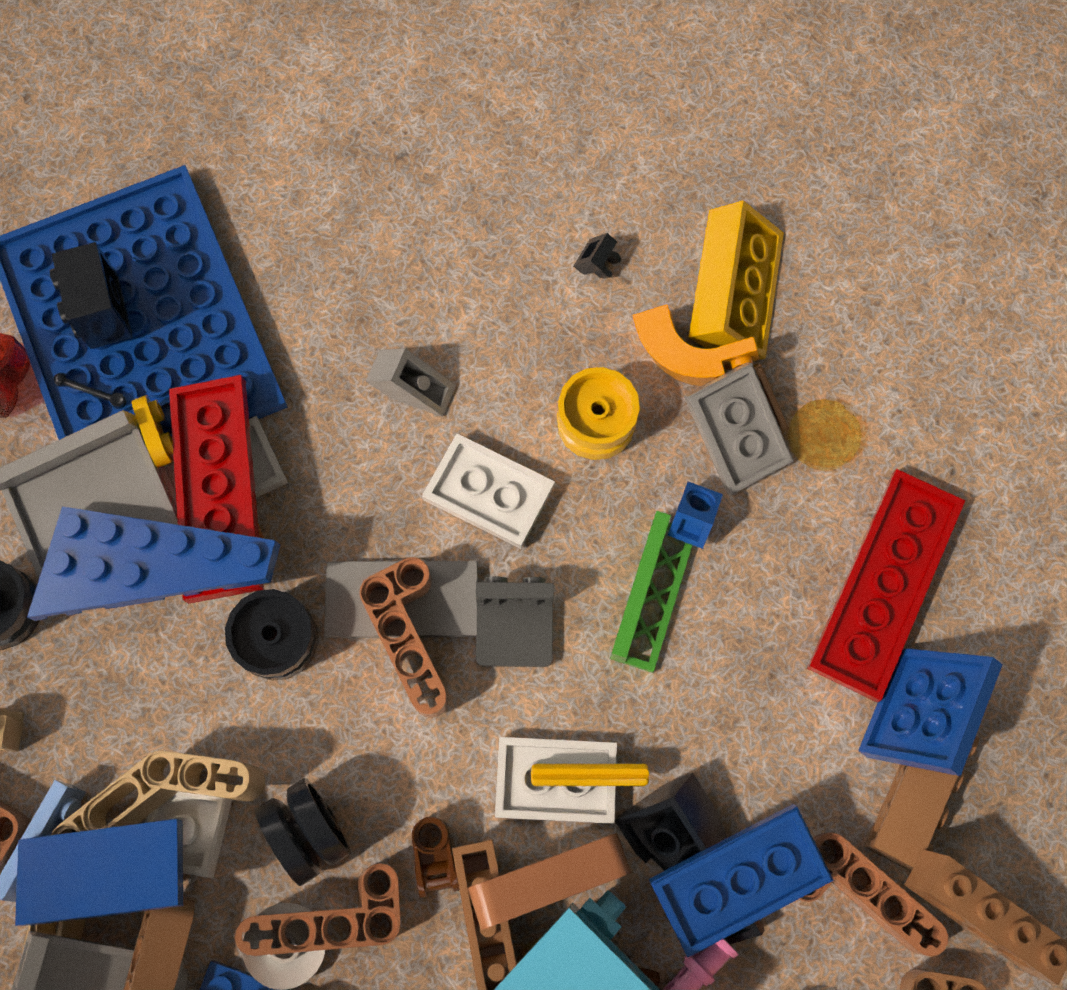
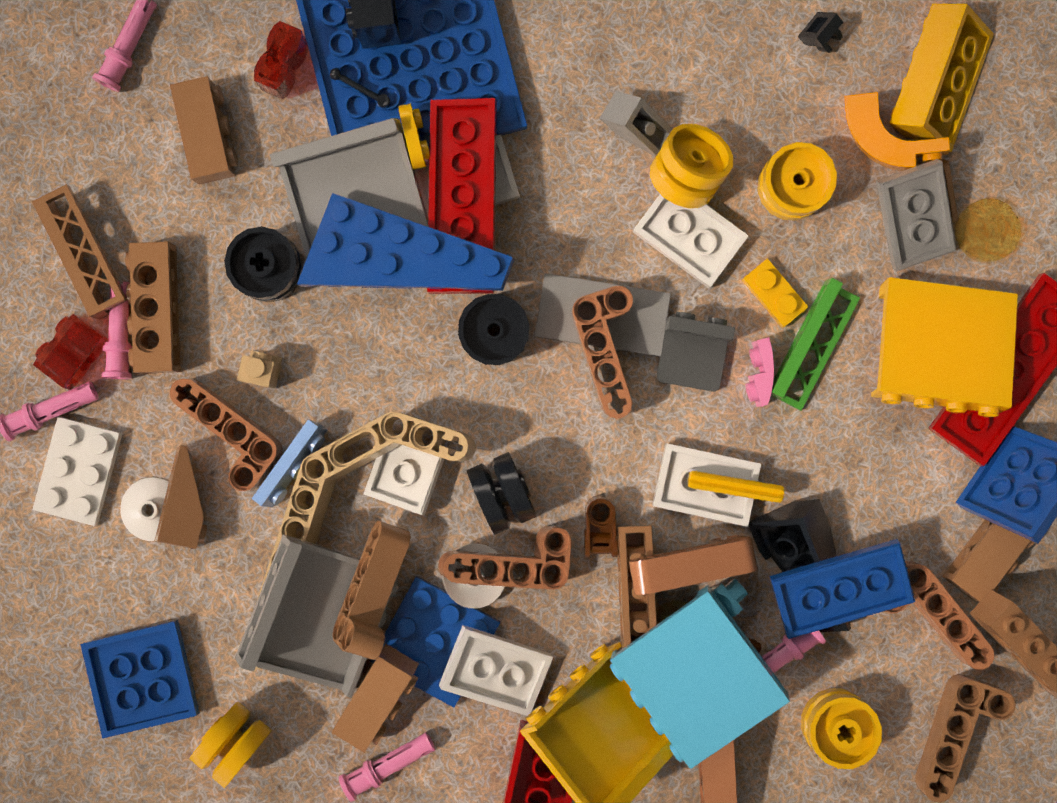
camera: 15 degrees right, 15 degrees up
(99, 872) = (341, 499): blue tile -> none
(474, 413) = (691, 165): none -> yellow wheel
(598, 542) = (774, 293): none -> yellow plate
(598, 644) = (761, 384): none -> bright pink slope
(695, 515) = (863, 285): blue brick -> none
(804, 569) = (946, 347): none -> yellow panel

